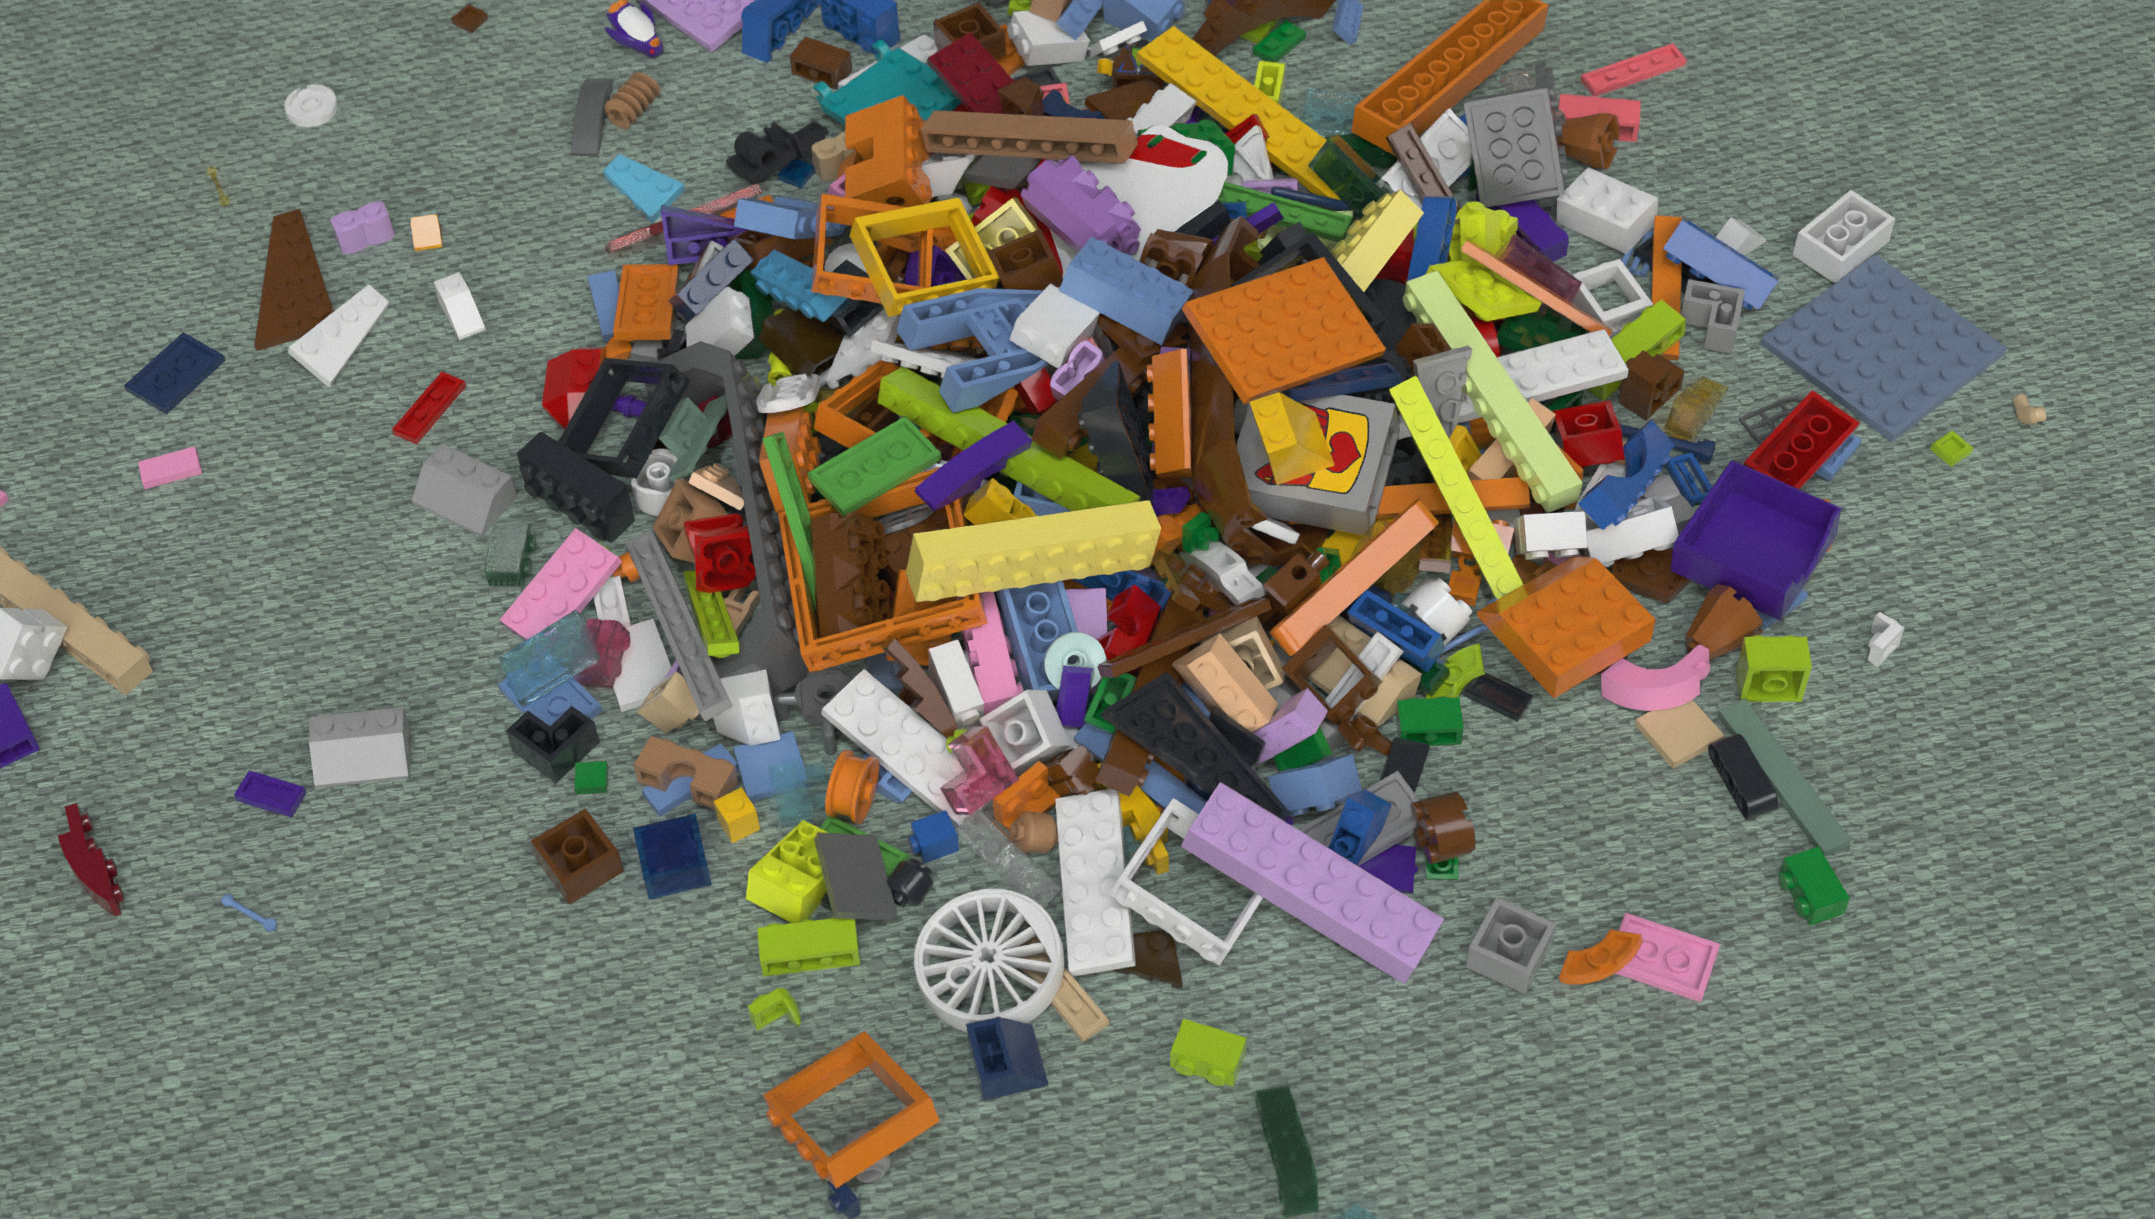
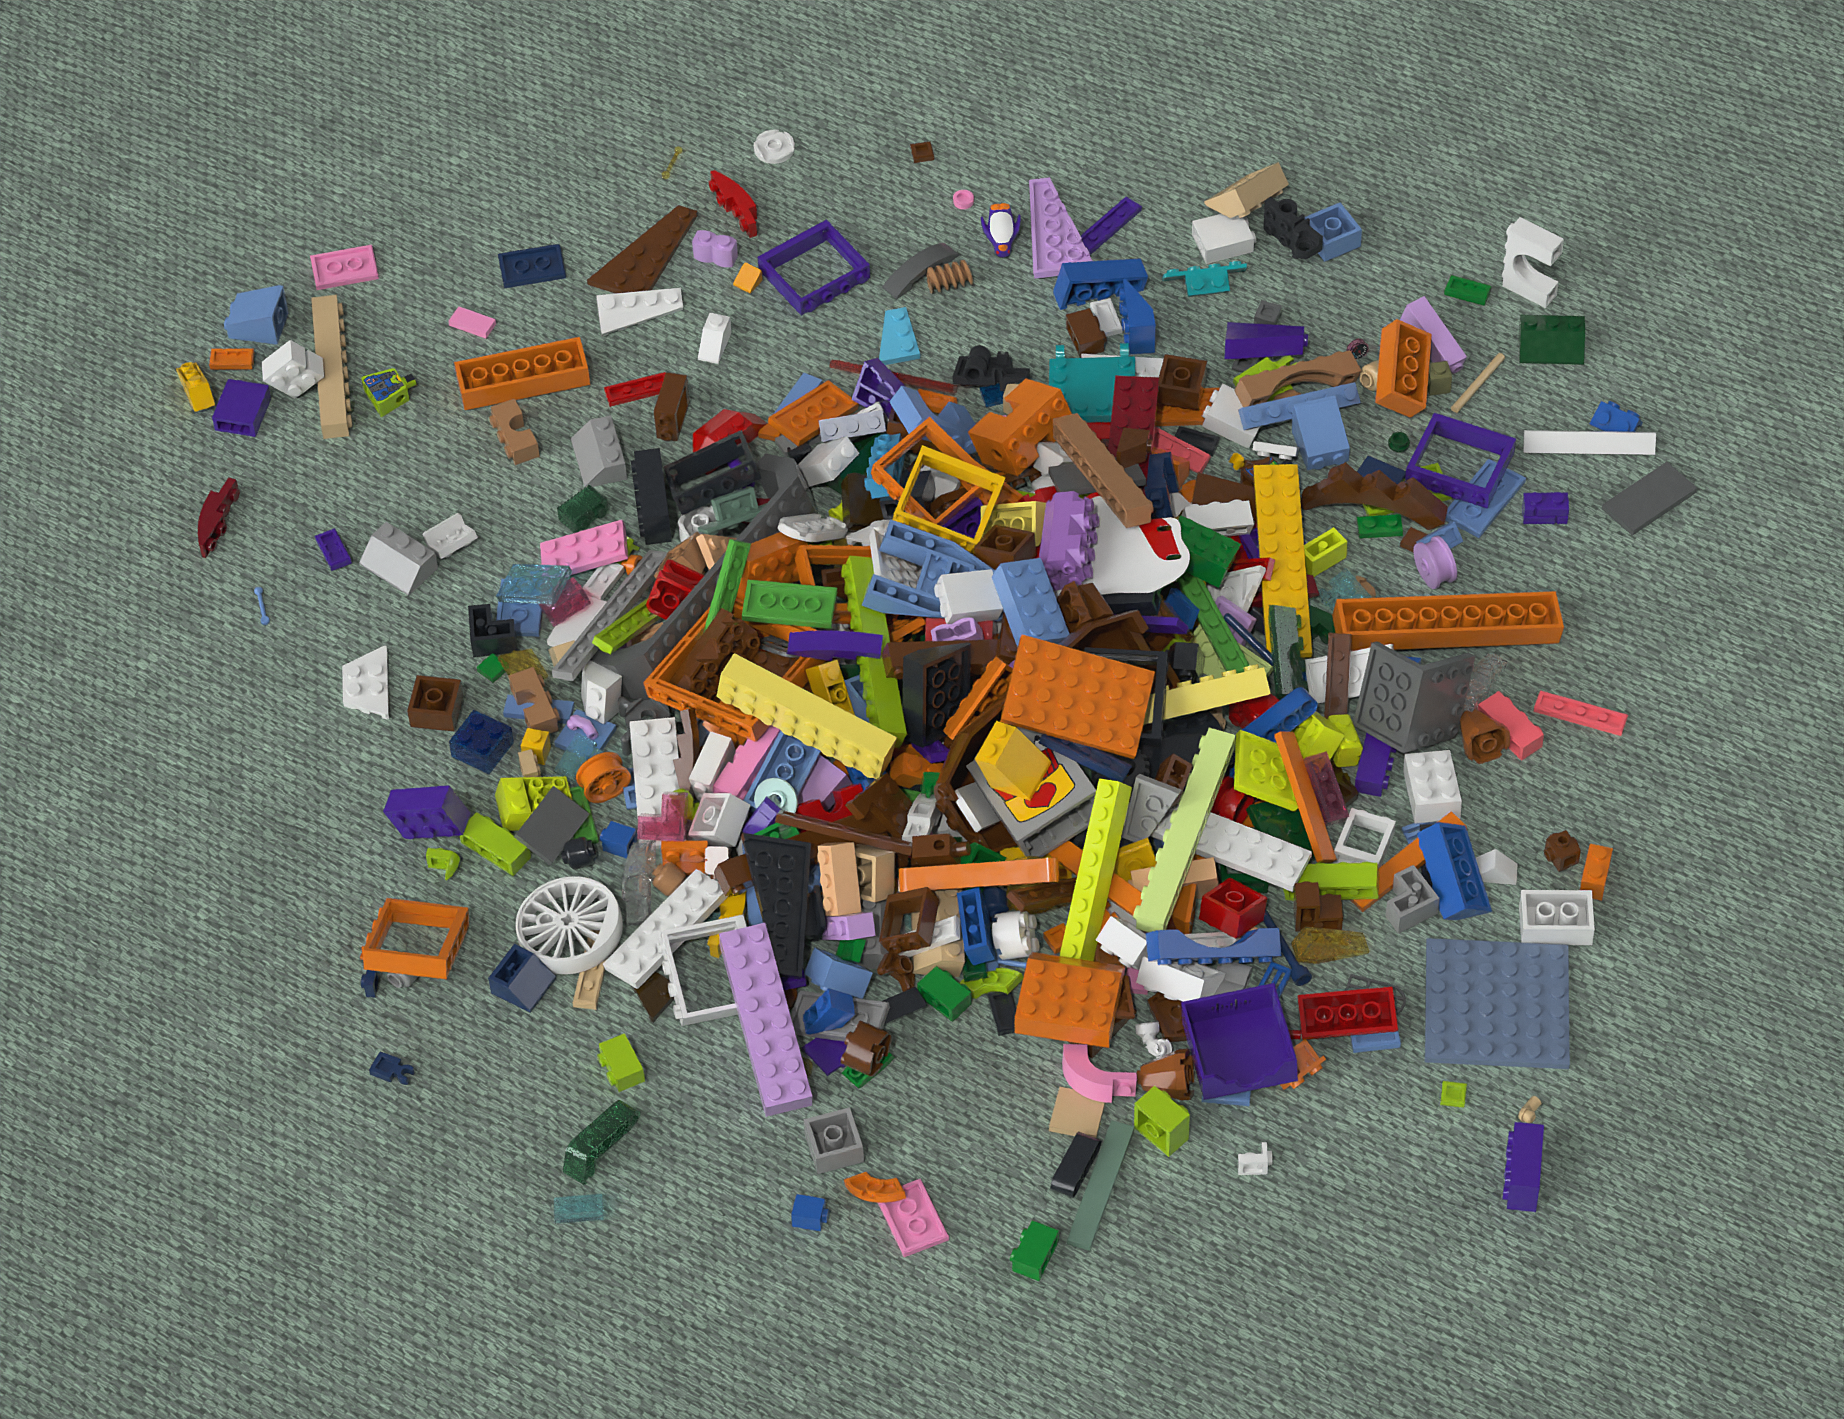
camera: 45 degrees right, 0 degrees up
(149, 594) = (387, 389): none -> torso
(289, 474) = (522, 373): none -> orange brick
(327, 171) = (735, 199): none -> red slope
(365, 544) = (520, 445): none -> medium nougat arch
(393, 682) = (449, 536): none -> white bracket
(469, 899) = (367, 683): none -> white wing
(493, 143) = (802, 243): none -> dark purple window
(495, 392) = (671, 406): none -> reddish brown window
(560, 31) = (963, 199): none -> bright pink tile
(618, 750) = (520, 661): none -> clear yellow piece
(710, 969) = (427, 812): none -> dark purple brick
(754, 840) = (529, 764): none -> tan piece
(763, 753) = (577, 721): none -> lavender arm
(821, 34) = (1107, 317): none -> white tile
(1322, 33) = (1410, 538): none -> reddish brown tile
(1375, 31) = (1435, 562): none -> lavender wheel
(1572, 1037) = (809, 1212): none -> blue brick
(1677, 609) = (1148, 1033): none -> white arm
(1773, 181) = (1562, 850): none -> reddish brown brick
(1819, 178) = (1596, 870): none -> orange brick
(2101, 454) = (1523, 1166): none -> dark purple brick

